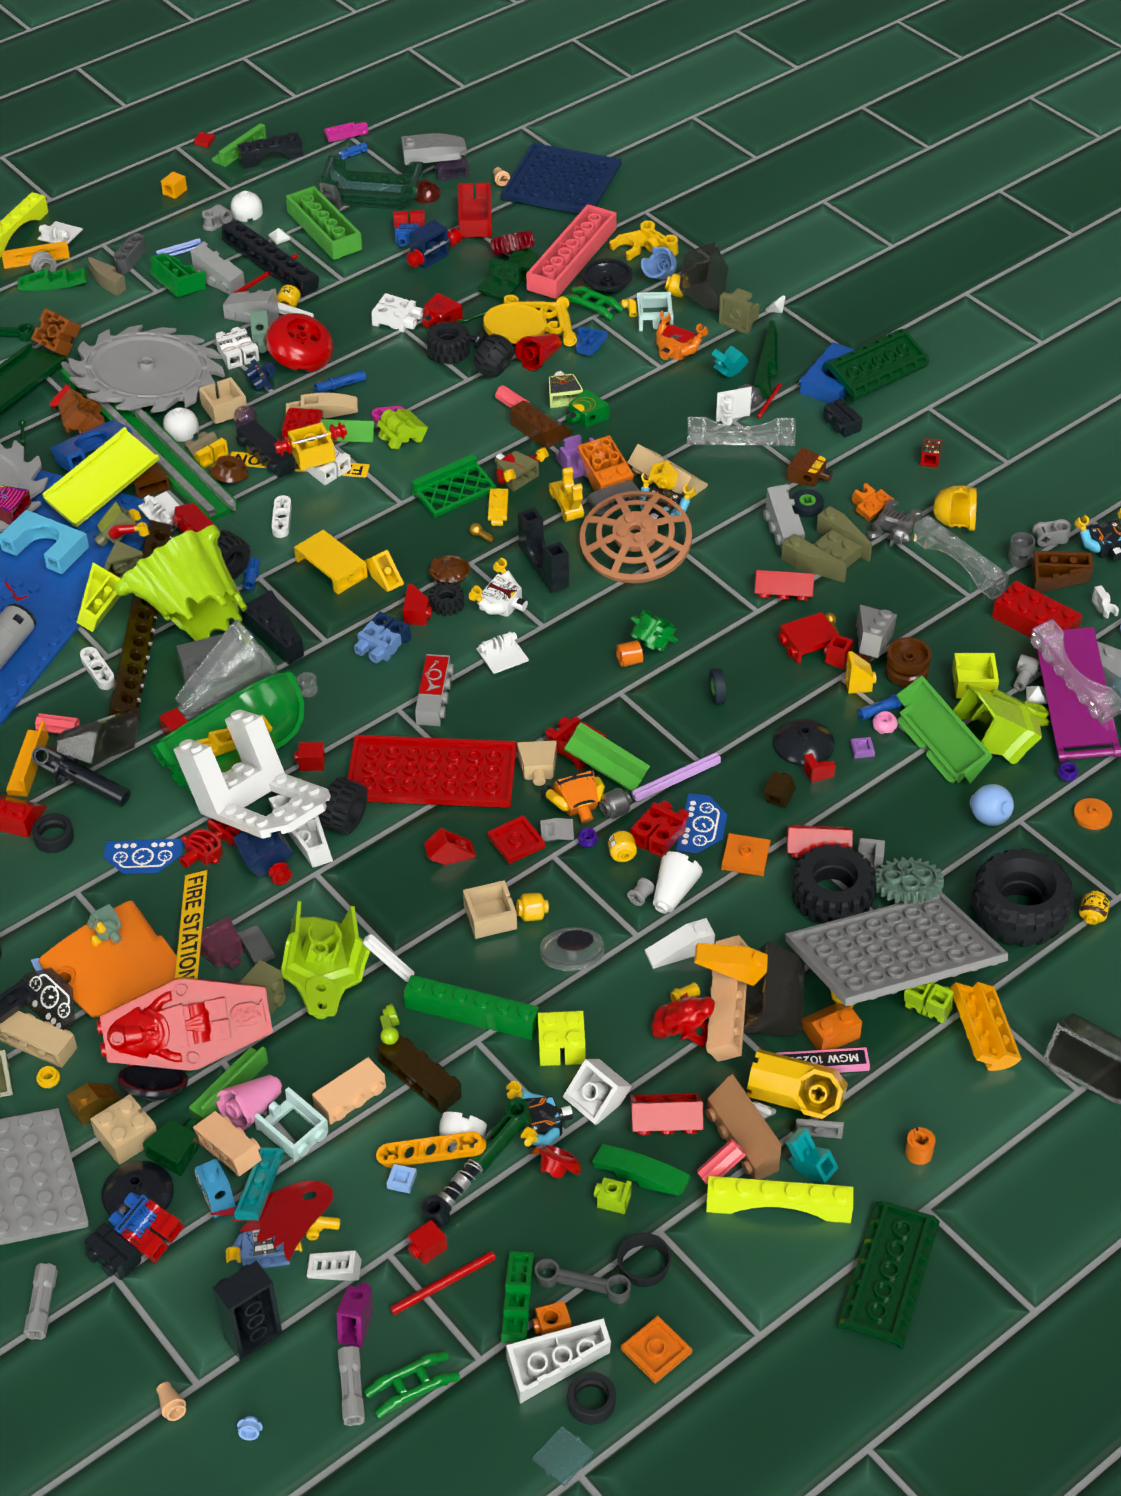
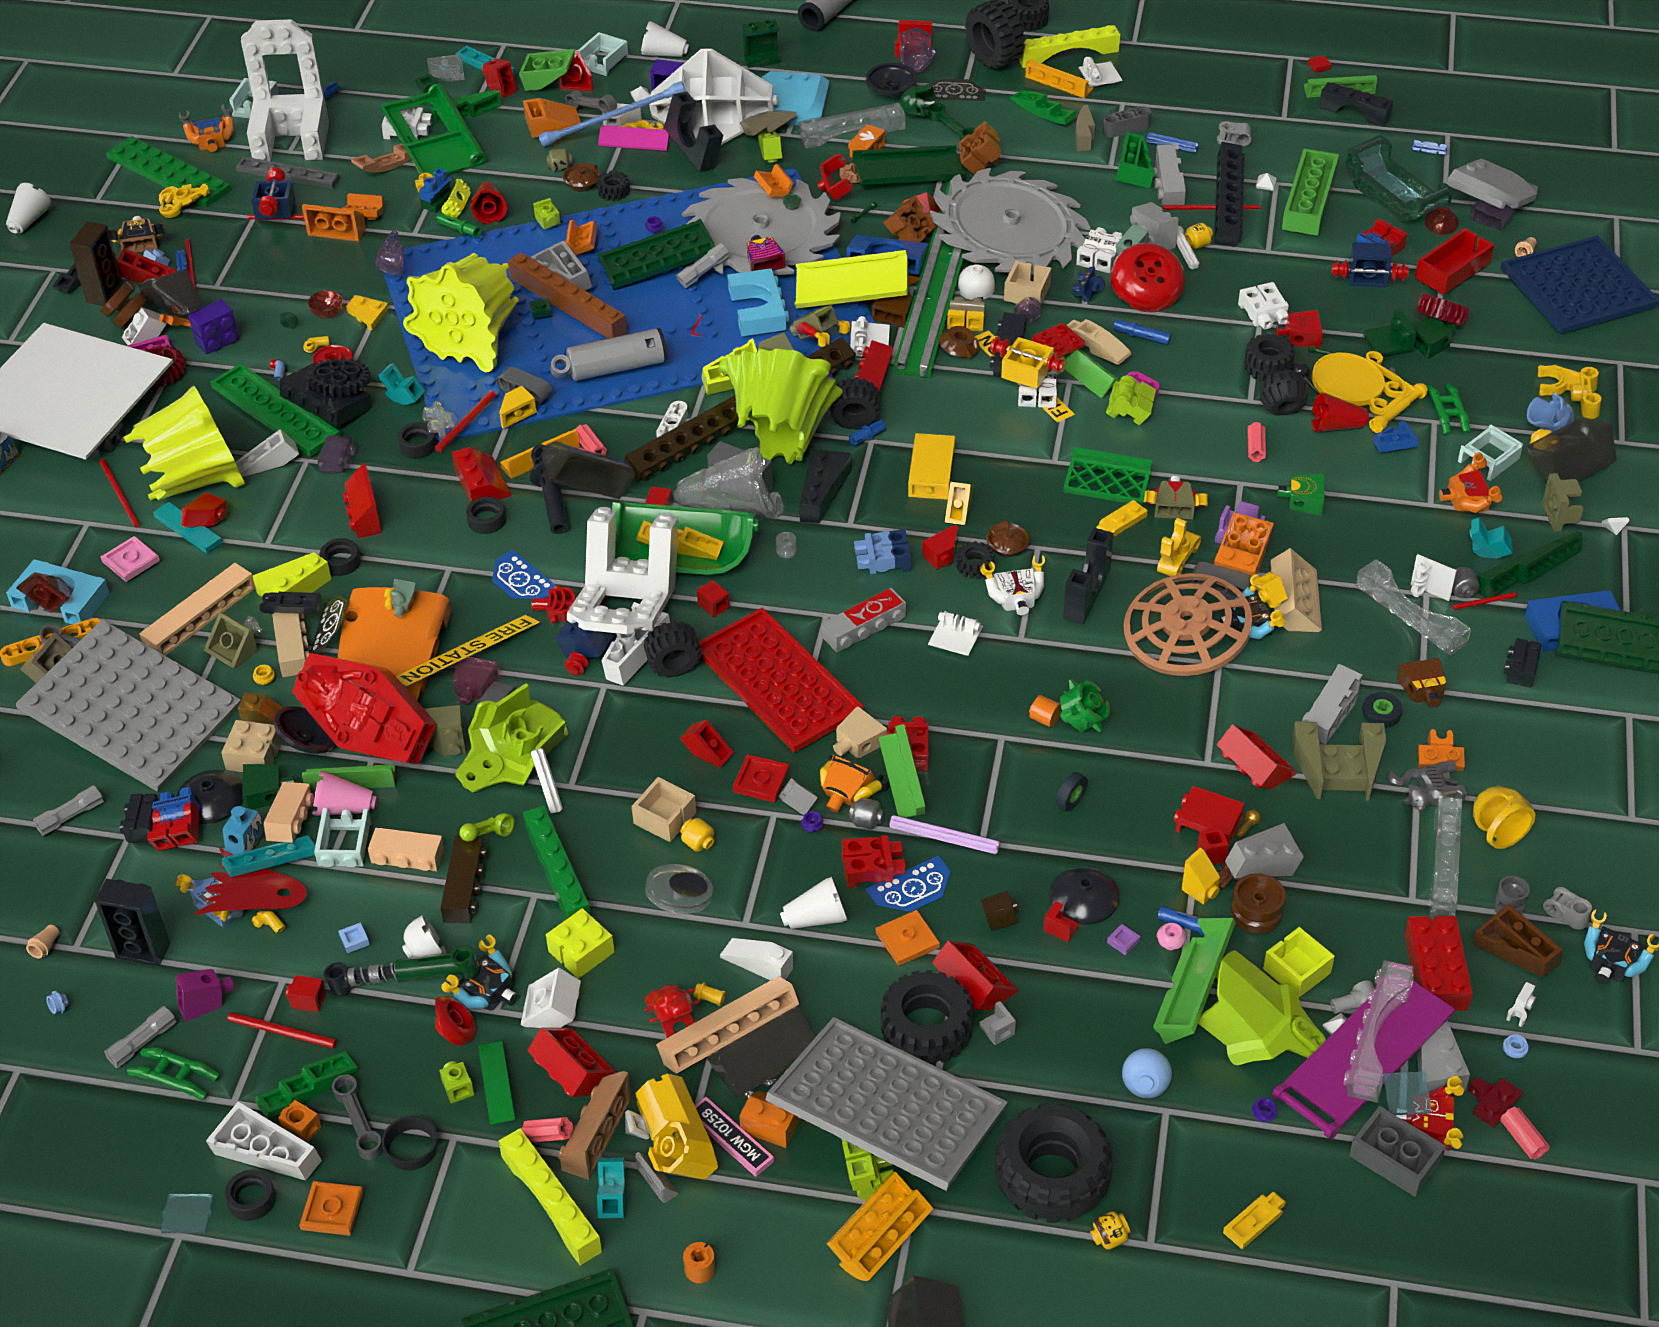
camera: 50 degrees right, 0 degrees up
(43, 260) = (1051, 86): light grey wheel -> none
(174, 185) = (1239, 87): light orange brick -> none
(246, 206) = (1271, 140): white cylinder -> none
(277, 511) = (939, 412): white beam -> none
(332, 194) = (1346, 172): dark grey slope -> none
(345, 131) = (1446, 126): dark pink hinge -> none
(345, 1273) = (241, 956): white slope -> none
(441, 1152) = (378, 925): light orange beam -> none
(477, 530) = (1076, 525): piece -> none
(538, 424) = (1251, 476): reddish brown slope -> none
(563, 389) = (1308, 460): torso -> none
(571, 251) = (1489, 351): coral brick -> none
(607, 275) = (1489, 392): black dish -> none
(621, 845) = (822, 848): yellow head -> none
(631, 305) = (1476, 430): yellow arm -> none
(641, 891) = (787, 893): light grey bush -> none
(733, 961) = (747, 993): light orange slope -> none
(908, 880) = (1009, 1068): sand green gear -> none
(931, 452) = (1561, 752): brick -> none
(1092, 814) = (1235, 1162): orange piece -> none

